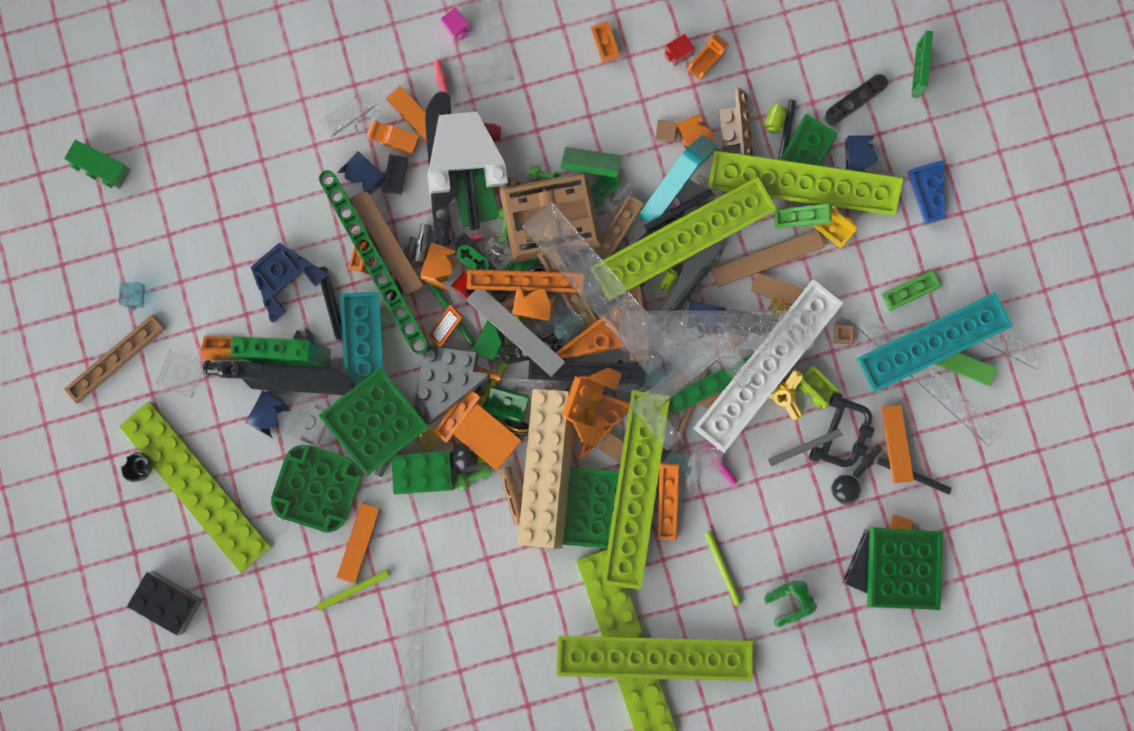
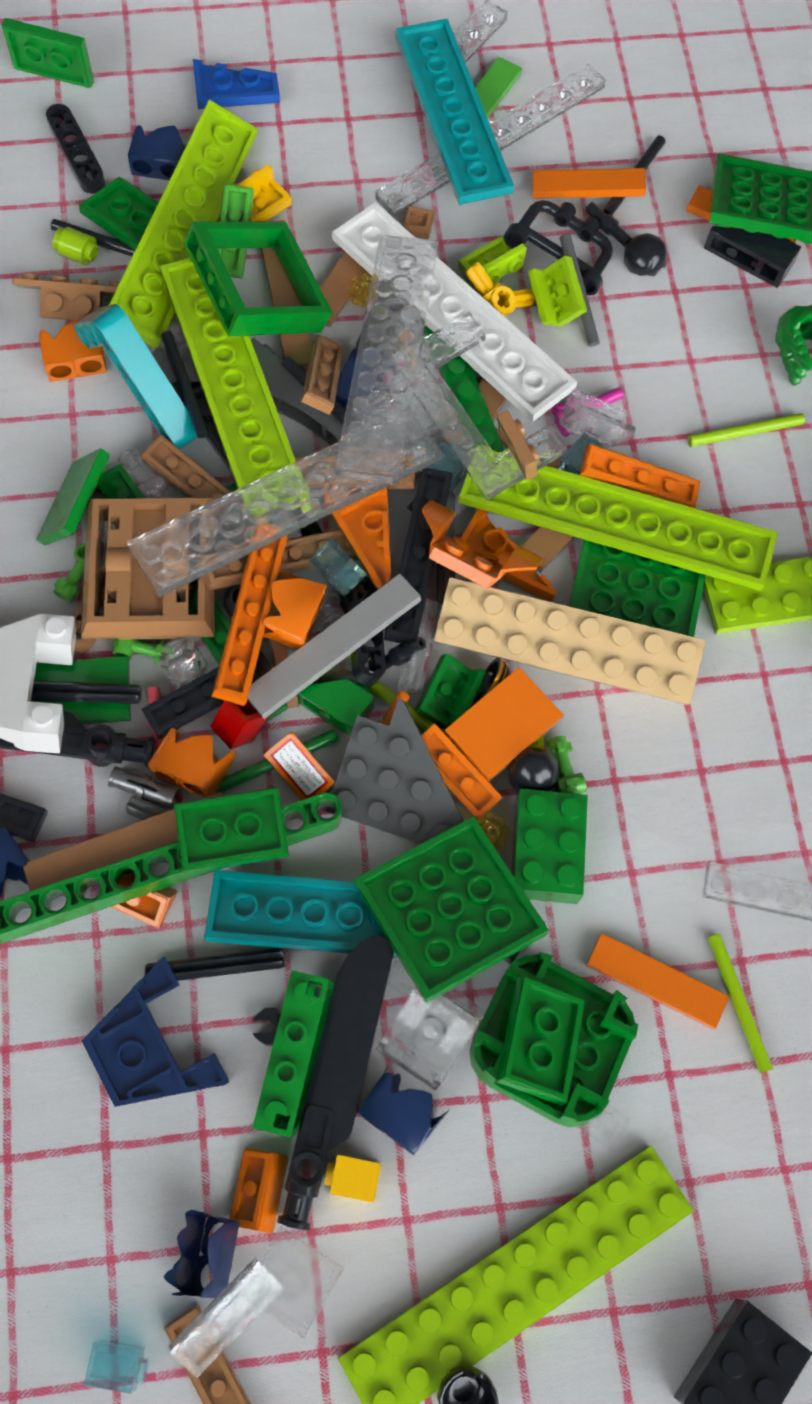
camera: 90 degrees left, 15 degrees down
(158, 343) = (225, 1317): none -> clear plate
(186, 332) = (217, 1253): none -> dark blue piece
(232, 394) = (353, 1178): none -> yellow brick
(310, 480) = (541, 1041): none -> green tile
(396, 295) = (231, 830): none -> green tile
(475, 256) = (189, 692): green beam -> none
(511, 494) = (640, 707): medium nougat pin -> none
(522, 372) = (402, 652): none -> black bar
(665, 131) = (51, 394): medium nougat tile -> none
(667, 414) = (513, 433): none -> medium nougat plate
(668, 279) = (293, 428): lime pin -> none
(701, 292) = (322, 374): none -> medium nougat tile
(744, 215) = (237, 319): none -> green window
(797, 432) = (558, 292): none -> lime bracket
(911, 290) = (370, 134): bright green tile -> none

